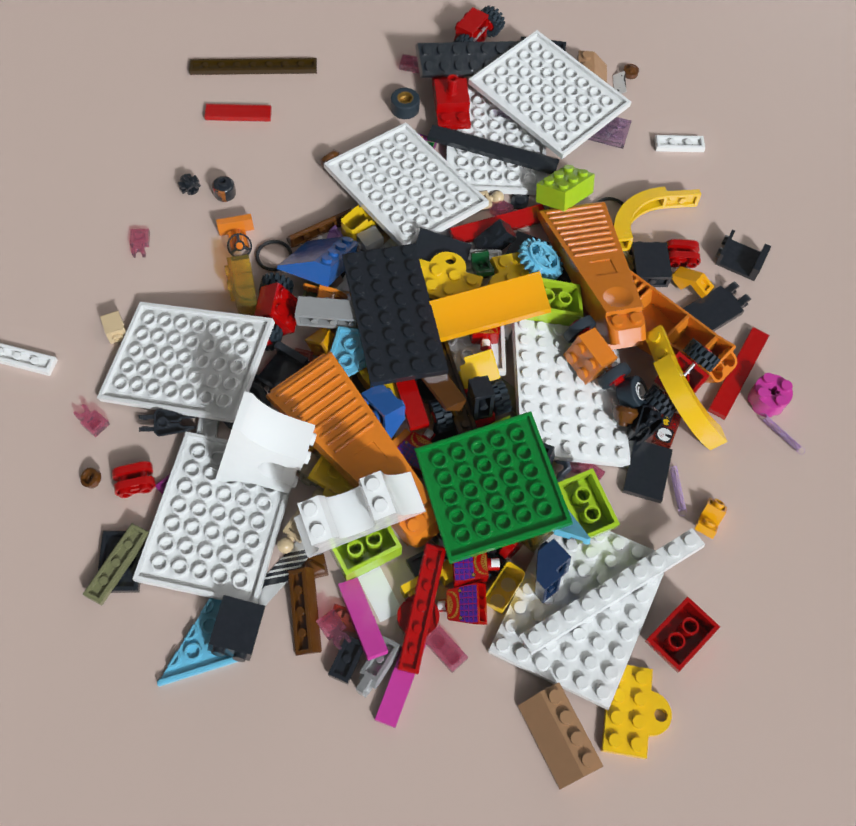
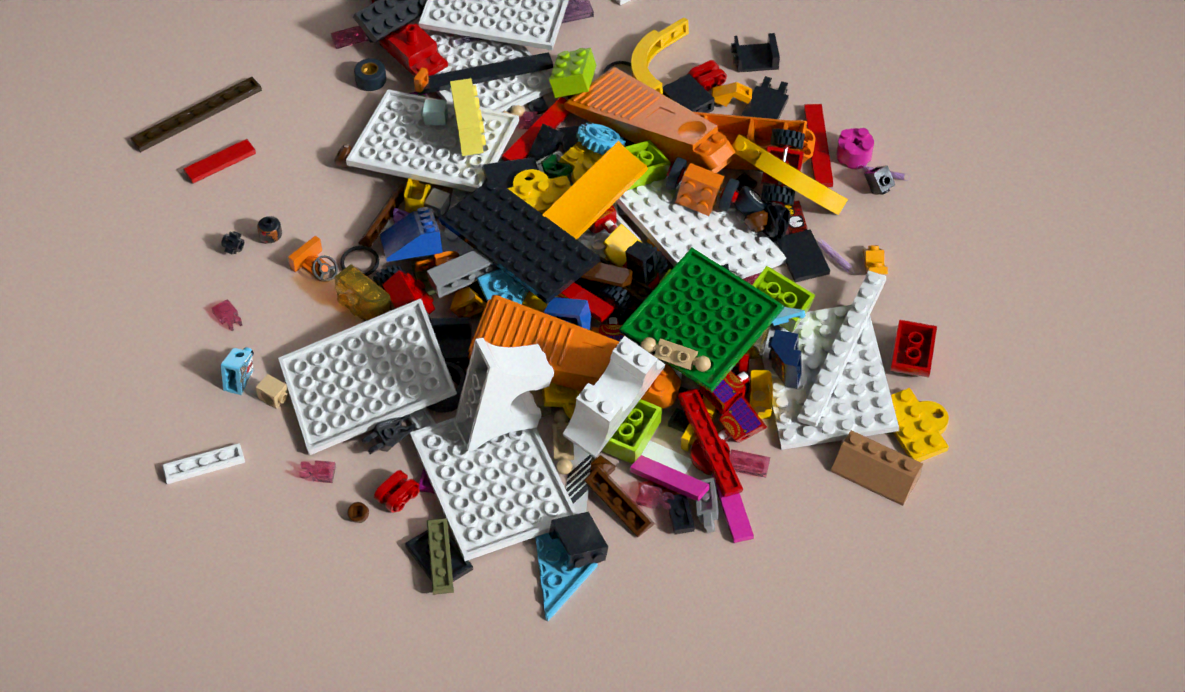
camera: 30 degrees left, 10 degrees down
(102, 292) = (237, 370): none -> medium azure torso
(422, 160) = (435, 112): none -> light aqua brick
(434, 127) = (421, 80): none -> orange tile
(439, 178) = (468, 116): none -> light yellow brick
(440, 508) = (676, 354): none -> tan plate
(645, 370) = (746, 180): none -> black tile
(771, 439) = (880, 179): none -> black brick

